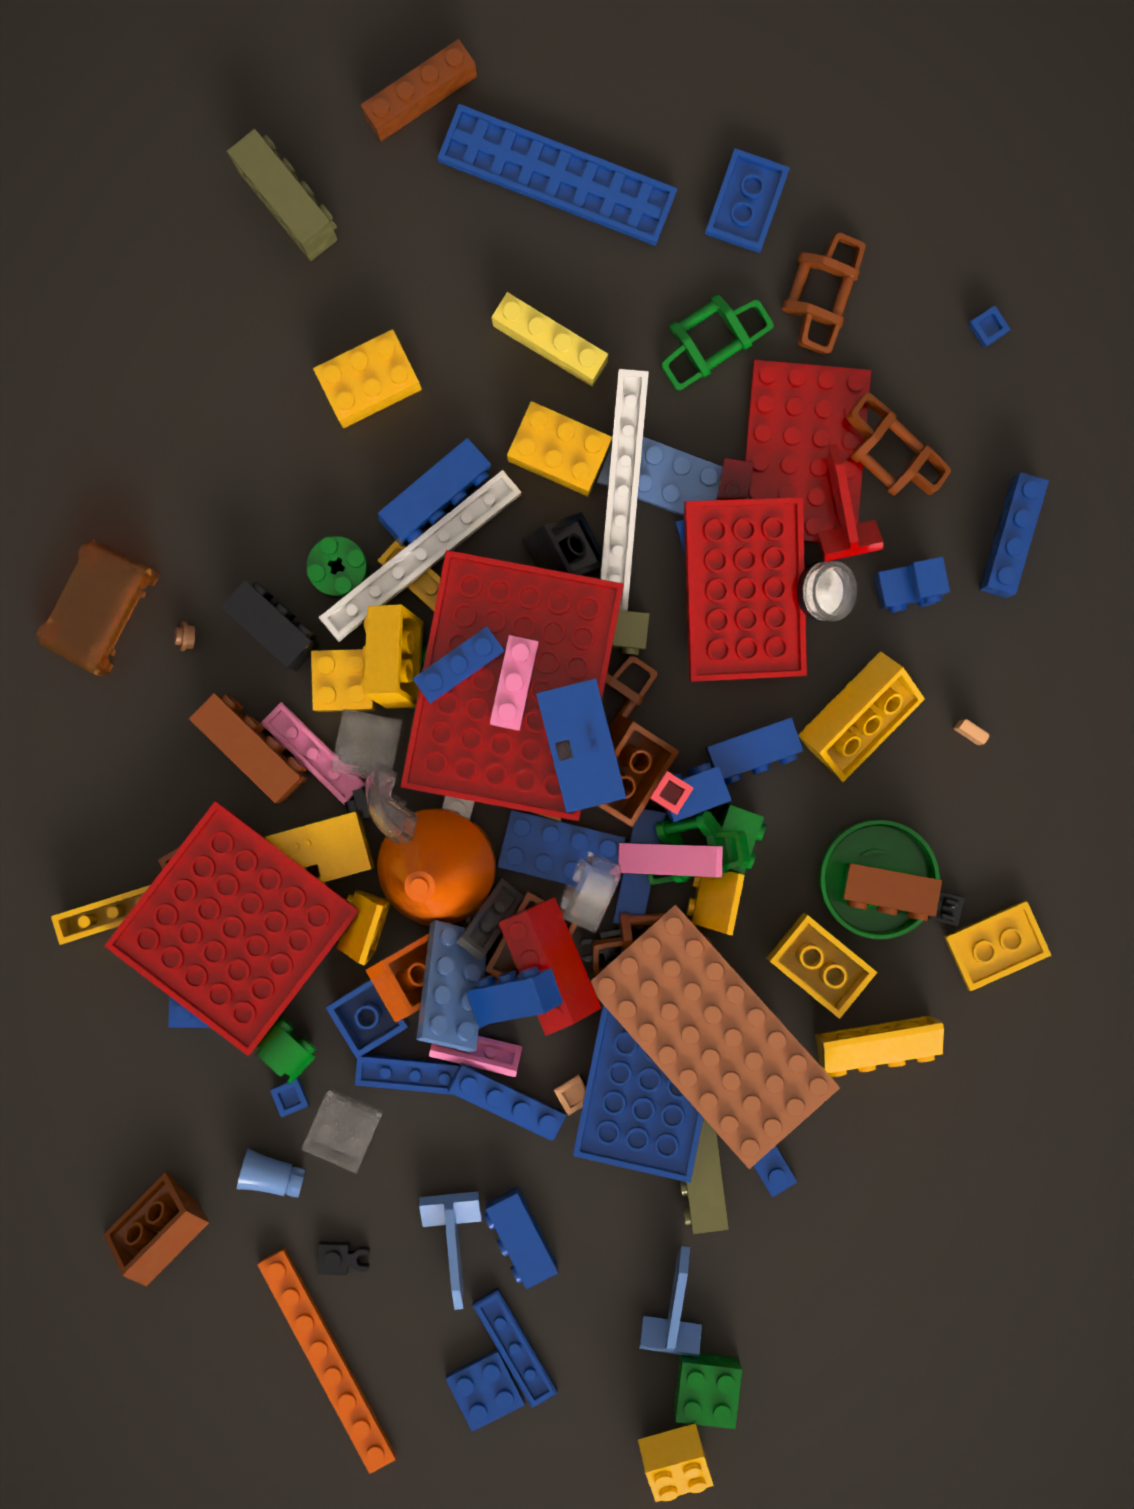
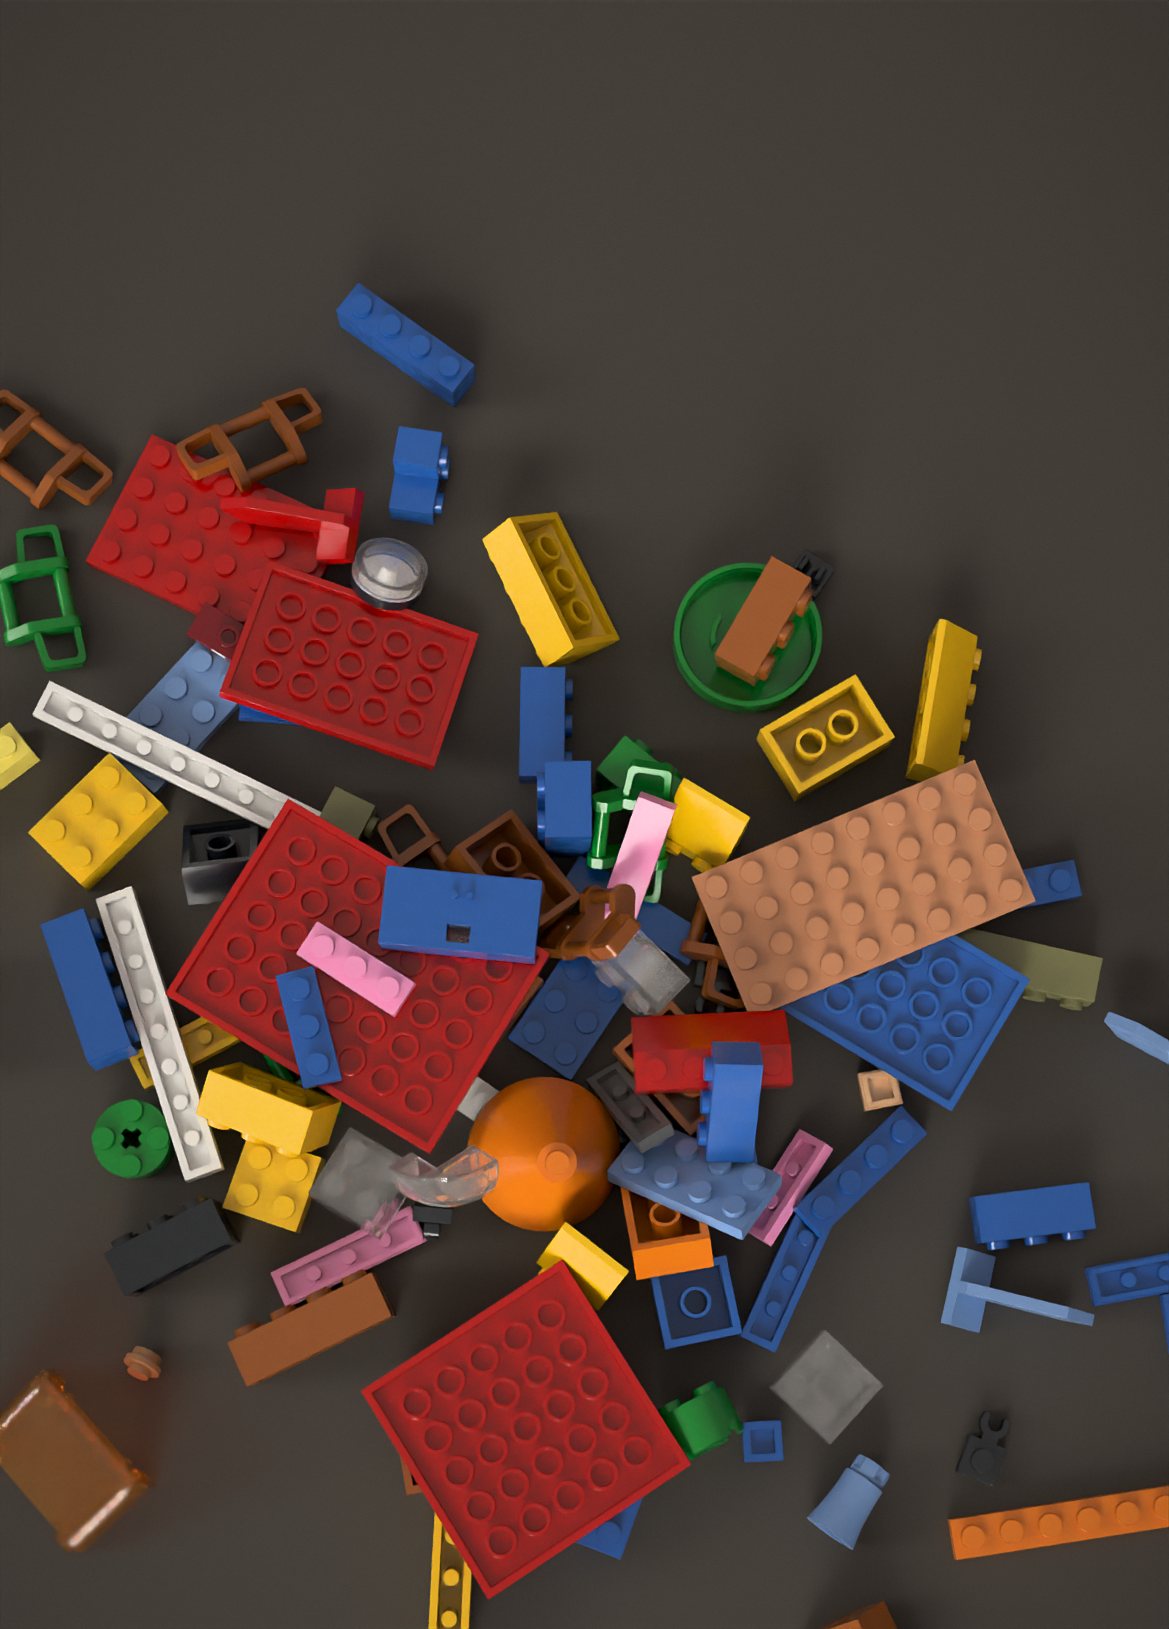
camera: 75 degrees left, 10 degrees down
(328, 847) = (470, 1274): yellow brick -> none
(603, 830) = (590, 932): none -> dark orange bar
(671, 792) = (555, 823): coral brick -> none
(971, 732) = (614, 472): light nougat tile -> none
(989, 327) = (156, 287): blue plate -> none
(997, 945) = (873, 532): yellow plate -> none

